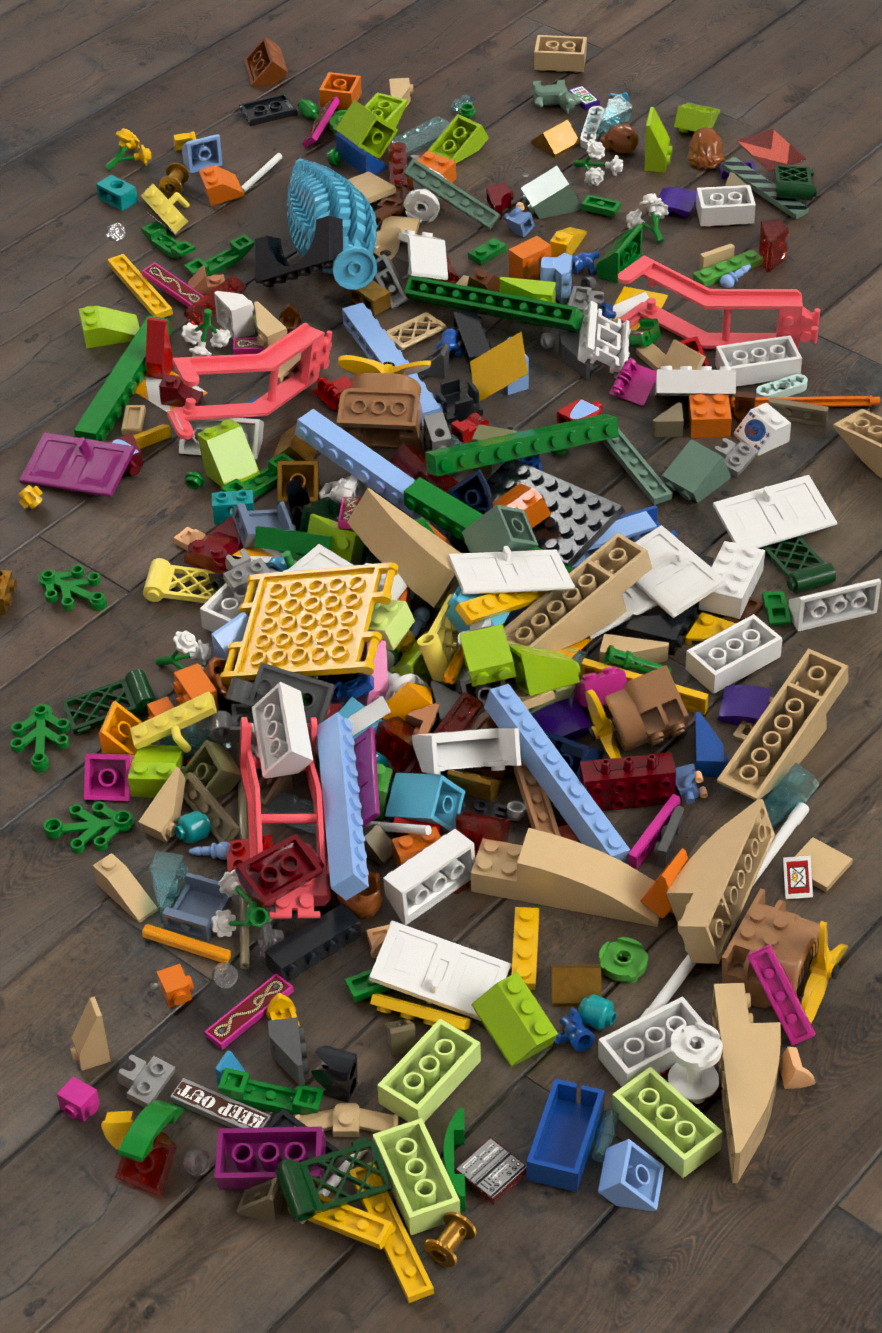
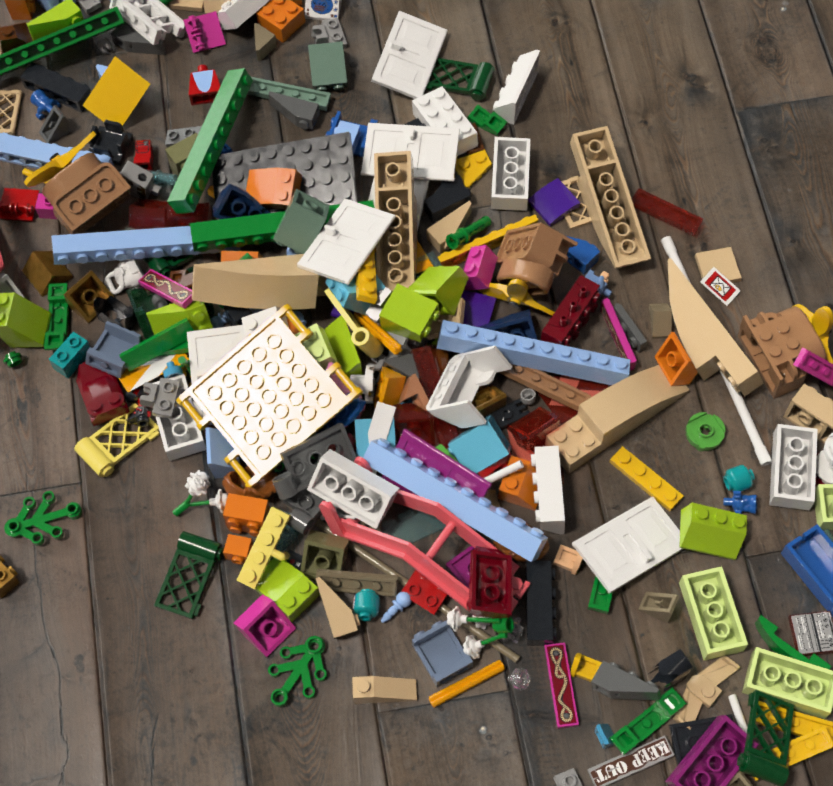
camera: 50 degrees left, 20 degrees up
(40, 715) = (175, 642): green plant -> none
(116, 733) = (229, 590): light orange slope -> none
(166, 877) = (397, 656): clear light blue slope -> none
(175, 985) = (503, 718): orange brick -> none
(187, 536) = (71, 406): light nougat tile -> none
(411, 1010) = (652, 580): yellow plate -> none
(574, 982) = (700, 471): pearl gold slope -> none
(630, 489) = (298, 111): none -> dark grey slope
(792, 789) = (653, 234): clear light blue slope -> none
(833, 789) = (666, 212): none -> clear red plate

